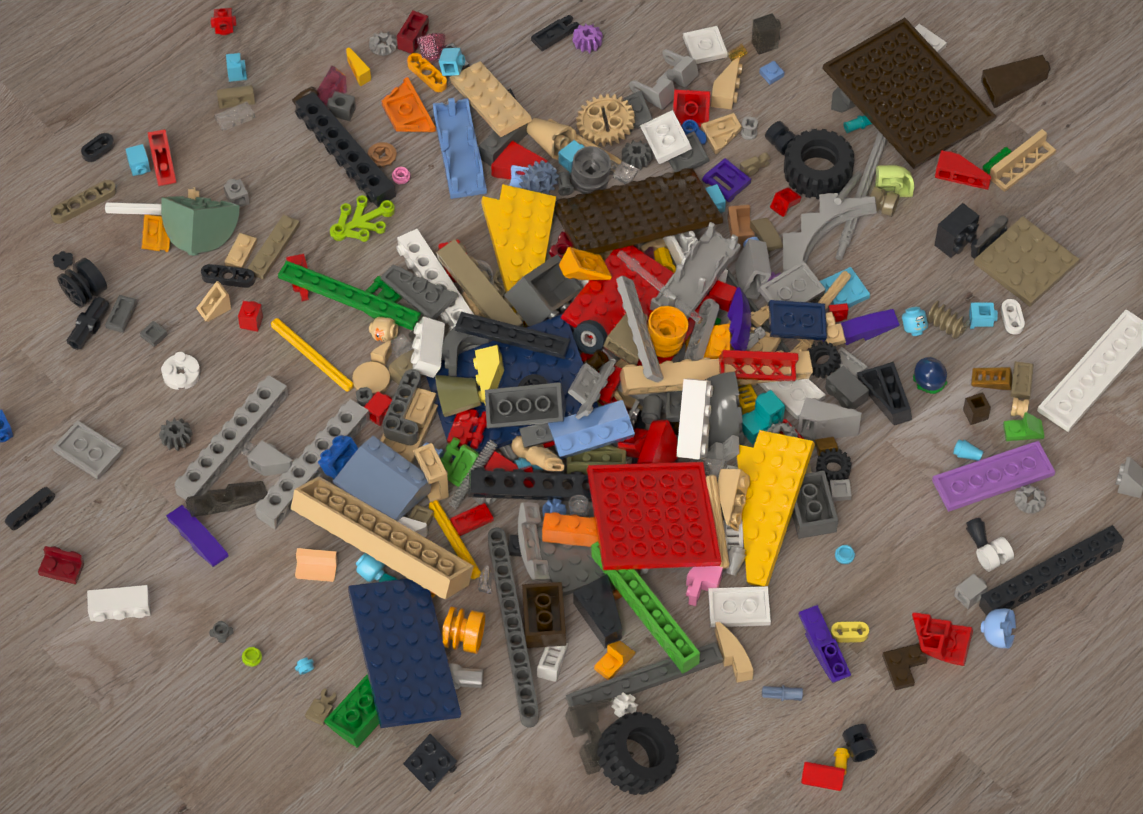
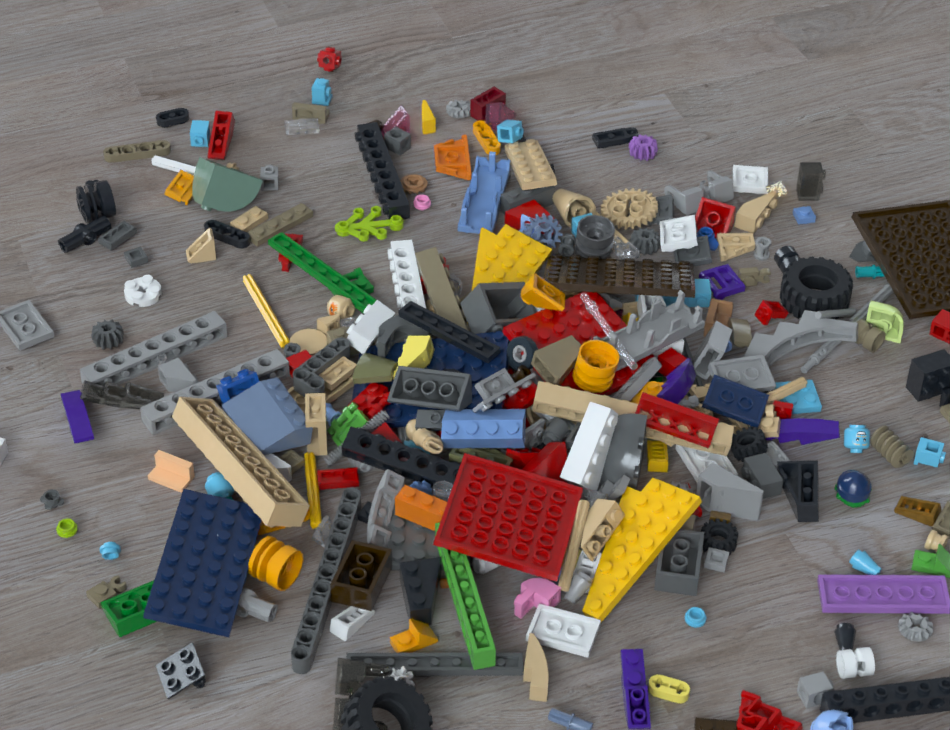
camera: 20 degrees right, 15 degrees down
(250, 316) = (227, 265): red brick -> none
(419, 292) = (387, 286): dark grey wing -> none
(639, 329) = (568, 353): light grey plate -> none
(767, 411) = (671, 467): teal brick -> none
(976, 408) = (889, 528): dark brown brick -> none

